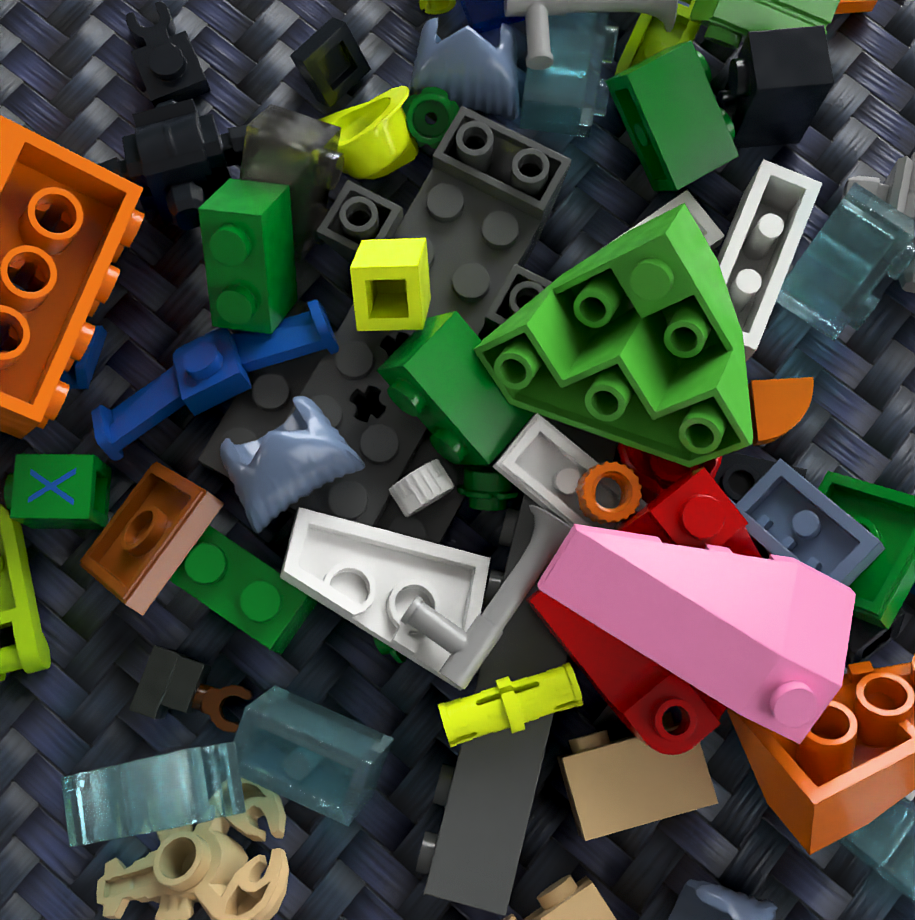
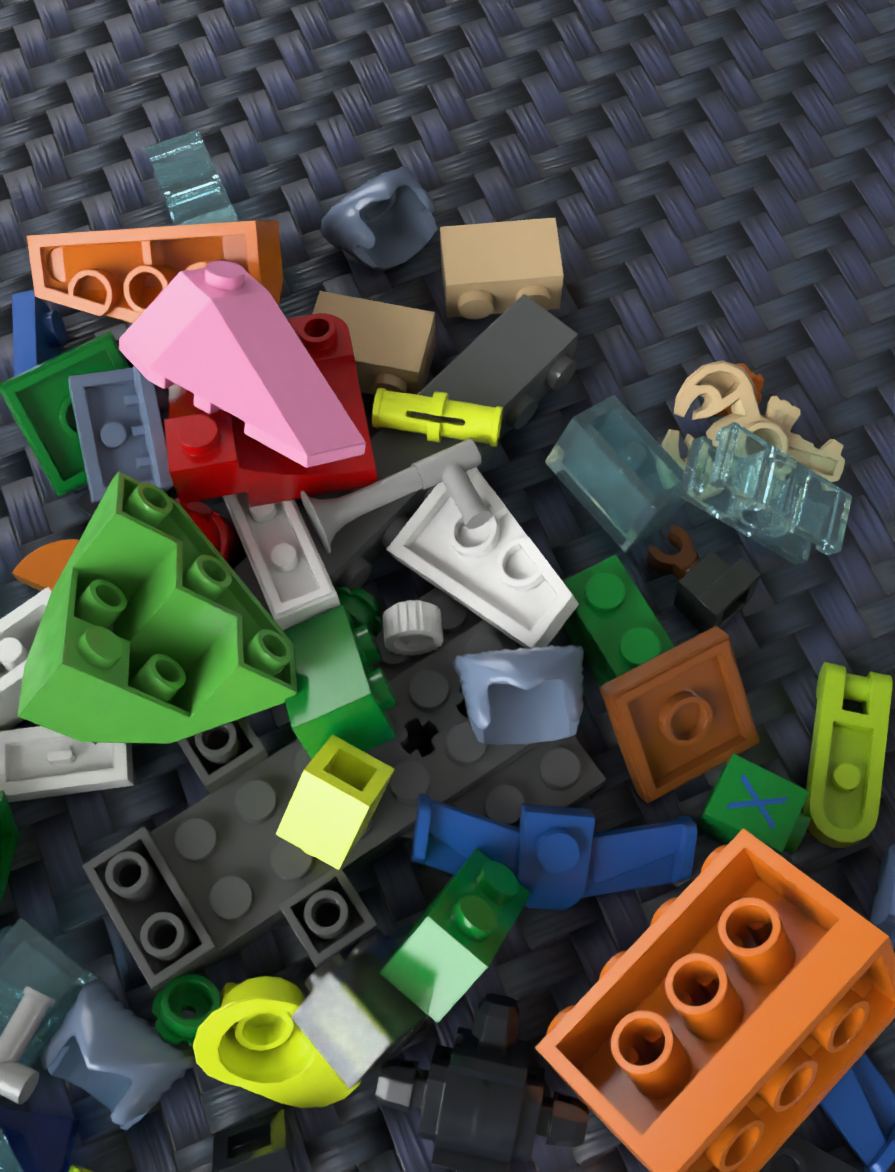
camera: 150 degrees left, 10 degrees down
(629, 489) = (263, 538): orange axle -> none

